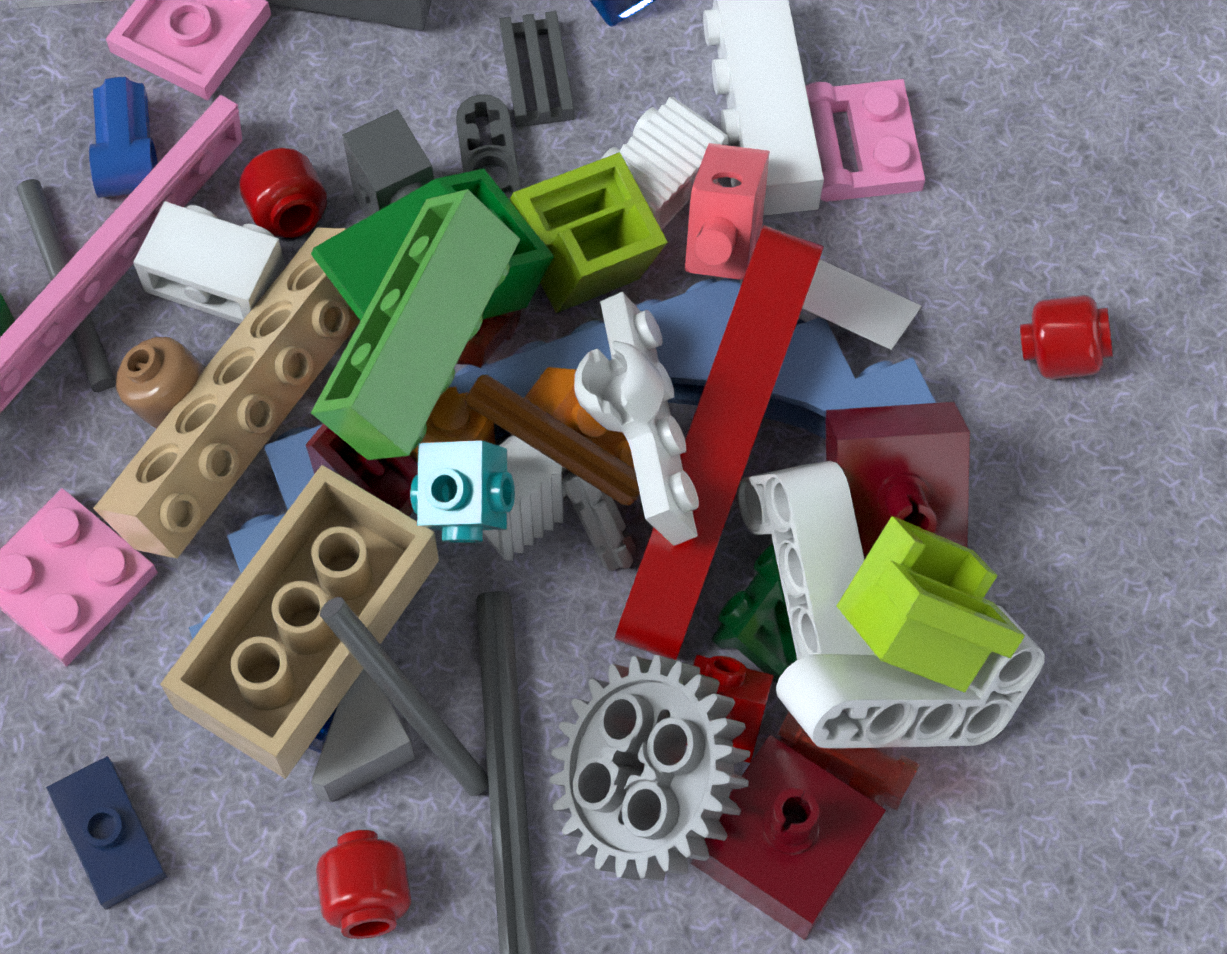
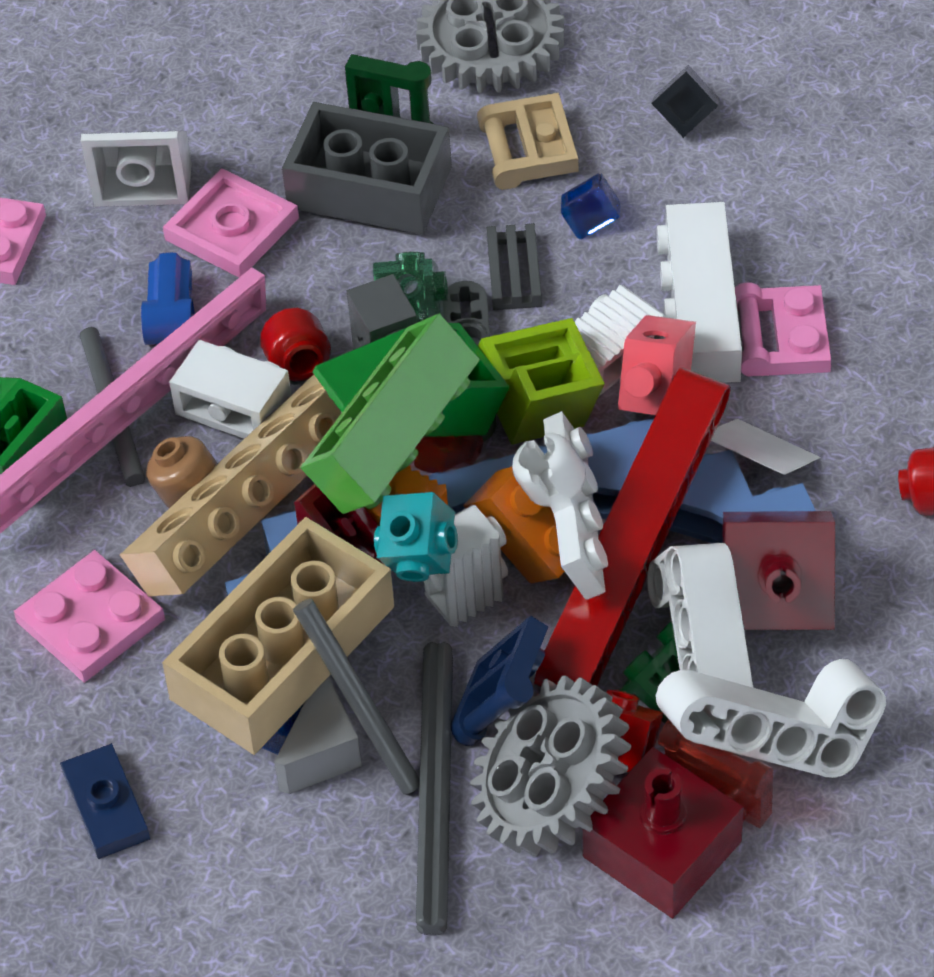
camera: 10 degrees right, 15 degrees down
(363, 885) = (309, 845): red head -> none
(441, 105) = (412, 269): none -> clear green brick
(553, 439) = (494, 510): reddish brown axle -> none
(574, 632) = (500, 681): none -> dark blue plate
(601, 522) = (529, 581): light grey axle -> none
(926, 608) = (788, 646): lime plate -> none

